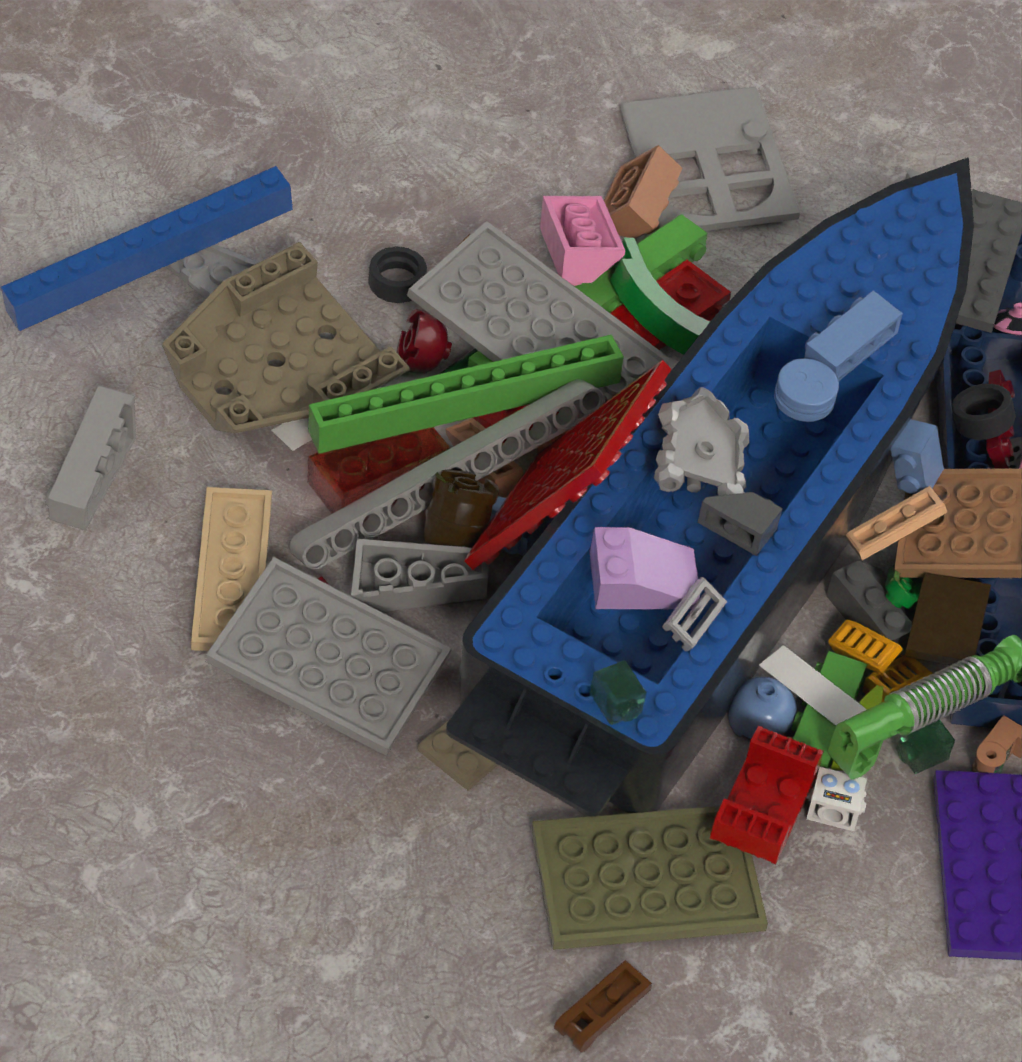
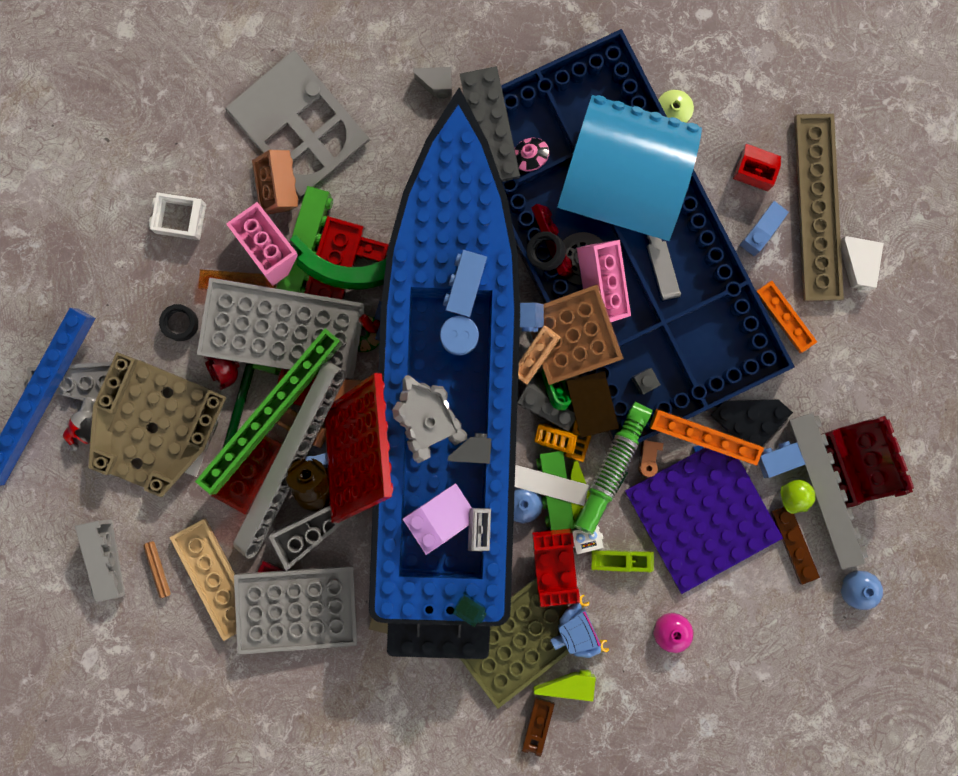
camera: 20 degrees left, 35 degrees up
(156, 520) = (156, 569): none -> medium nougat axle
(176, 307) = (80, 424): none -> light grey piece
(508, 168) = (196, 218): none -> white window
(689, 973) = (572, 686): none -> lime slope
(753, 902) = (578, 632): none -> medium blue torso
(881, 857) = (623, 560): none -> lime slope
(907, 995) = (665, 629): none -> dark pink cylinder

